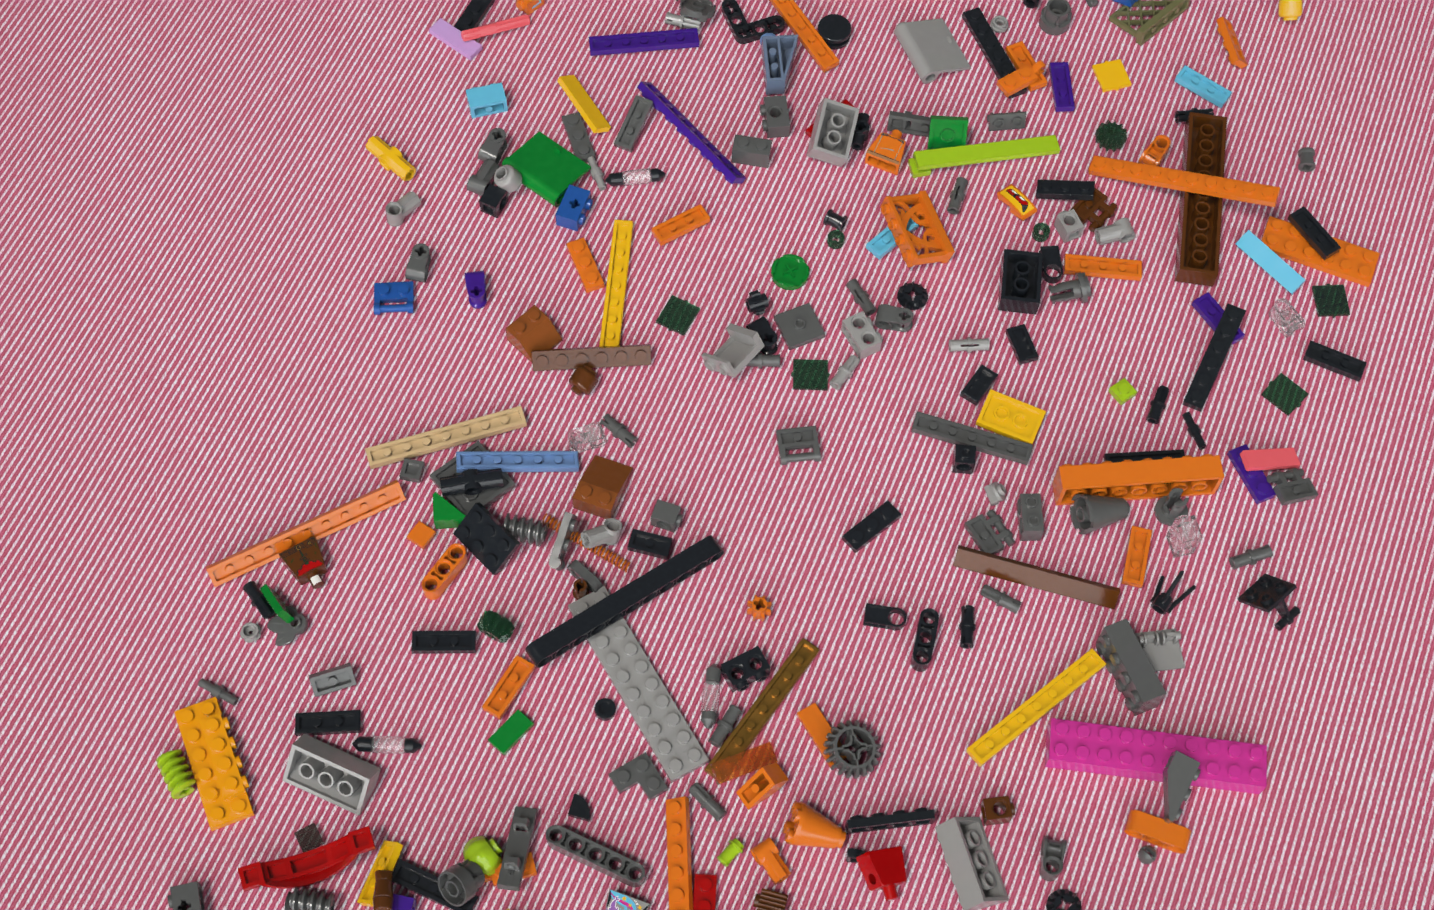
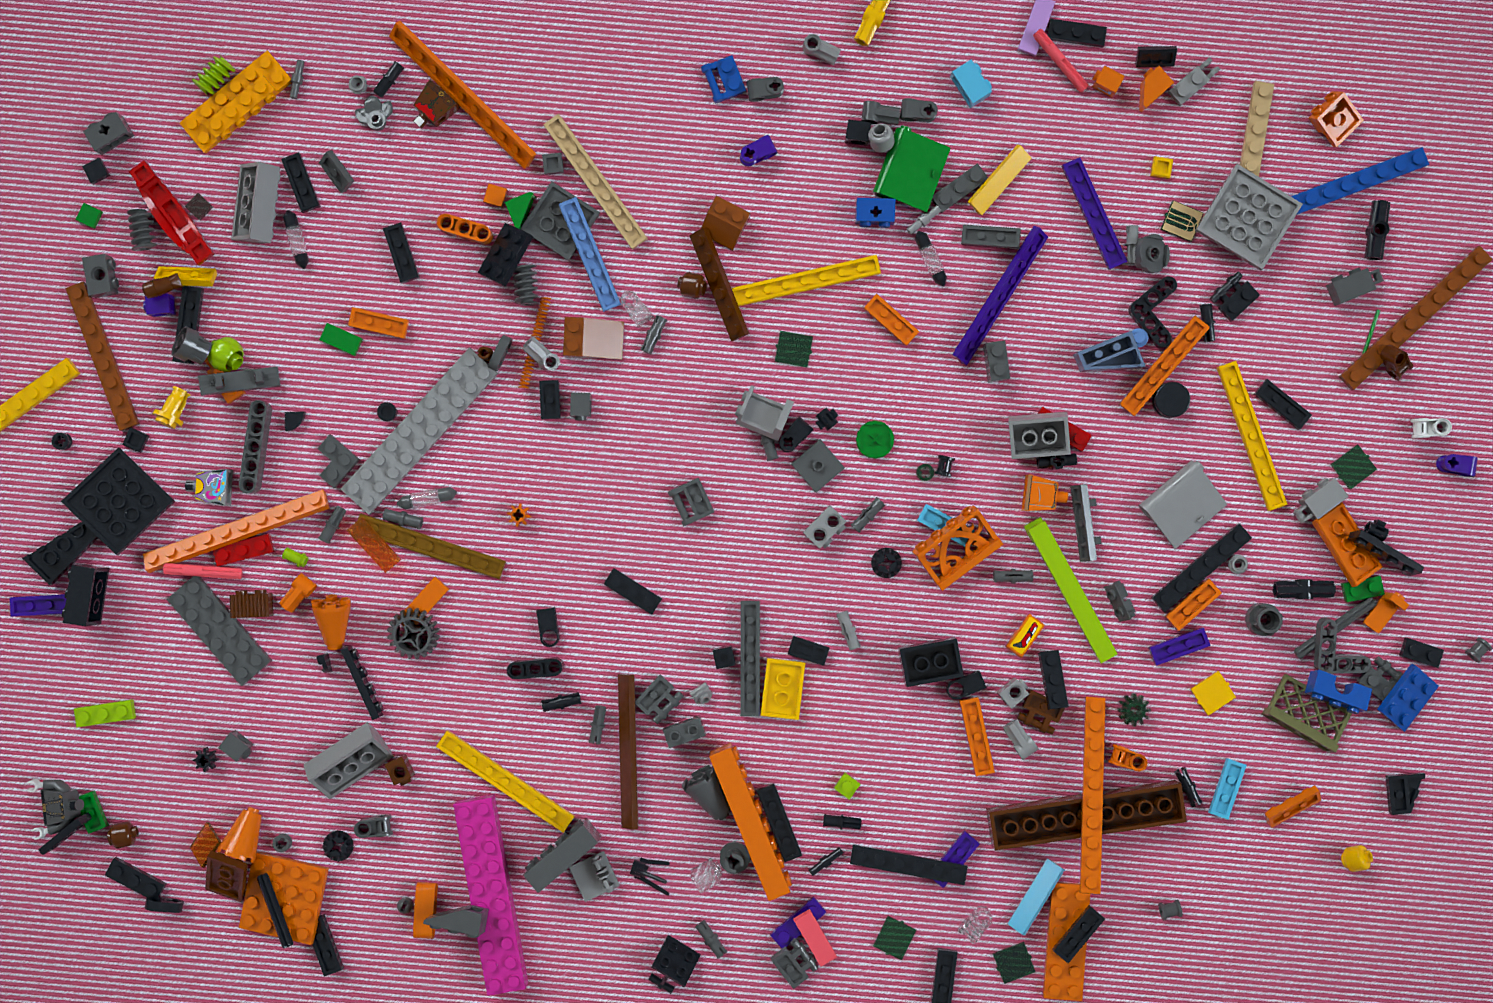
camera: 75 degrees right, 25 degrees up
(277, 603) = (385, 96): green tile -> none
(471, 482) = (552, 221): black piece -> none
(495, 626) = (425, 292): clear green gear -> none
(563, 541) = (520, 323): plate -> none
(585, 265) = (818, 244): orange plate -> none
(624, 601) = (483, 397): black beam -> none
(741, 665) = (461, 516): black brick -> none
(762, 785) = (359, 567): orange slope -> none
(776, 116) = (1057, 369): dark grey brick -> none
(810, 374) = (770, 491): clear green piece -> none
(844, 372) = (782, 522): light grey axle -> none
(883, 870) = (316, 689): red torso -> none
(892, 318) = (853, 548): dark grey piece -> none
(947, 132) = (1077, 547): green plate -> none
(1020, 78) = (1170, 603): orange plate -> none
(1021, 344) = (865, 679): black plate -> none
(1046, 231) = (995, 672): clear green bush -> none
(1079, 288) = (938, 712): dark grey piece -> none
(1136, 556) = (677, 836): orange plate -> none

